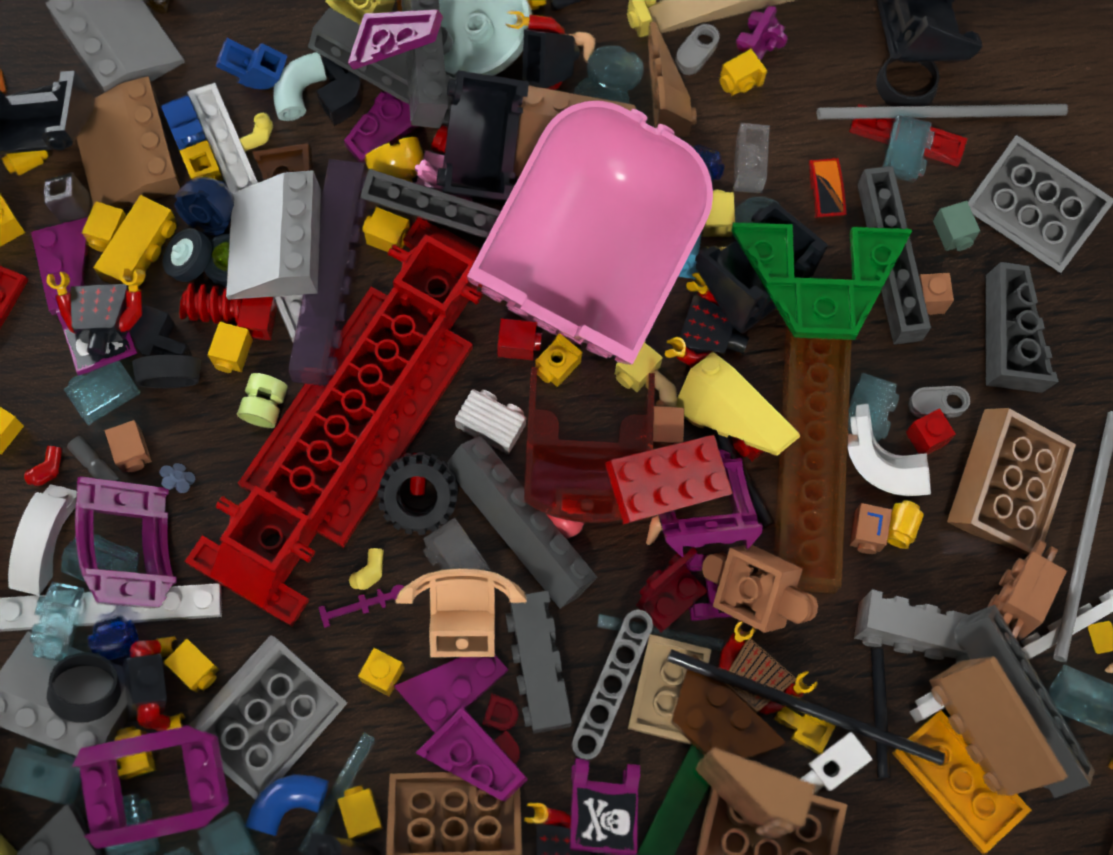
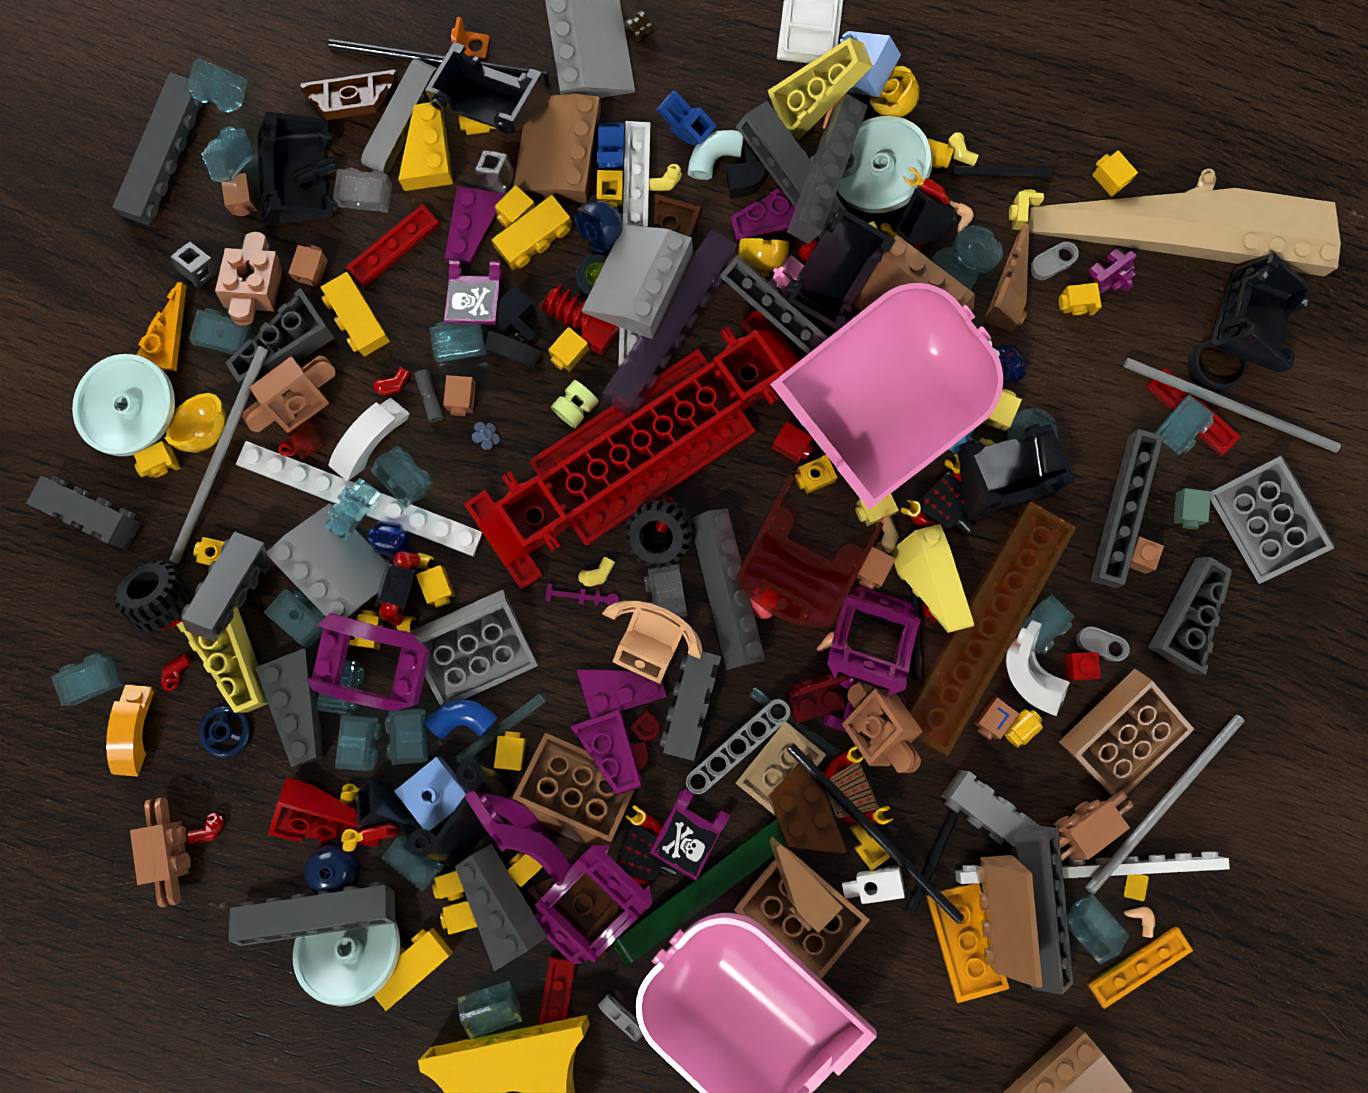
camera: 30 degrees right, 10 degrees up
(83, 712) = (344, 588): black tyre -> none
(100, 311) = (481, 280): torso -> none
(127, 500) = (441, 438): magenta wedge -> none
(187, 255) = (567, 259): black wheel -> none
(381, 672) = (571, 655): yellow brick -> none
(385, 229) = (730, 307): yellow brick -> none
(392, 34) = (806, 150): magenta wing -> none
(492, 420) = (742, 499): white brick -> none
(668, 479) = (854, 612): red plate -> none
(751, 158) = (1051, 376): clear brick -> none
(821, 305) = (1045, 529): green wing -> none
(828, 187) = (1102, 427): slope -> none

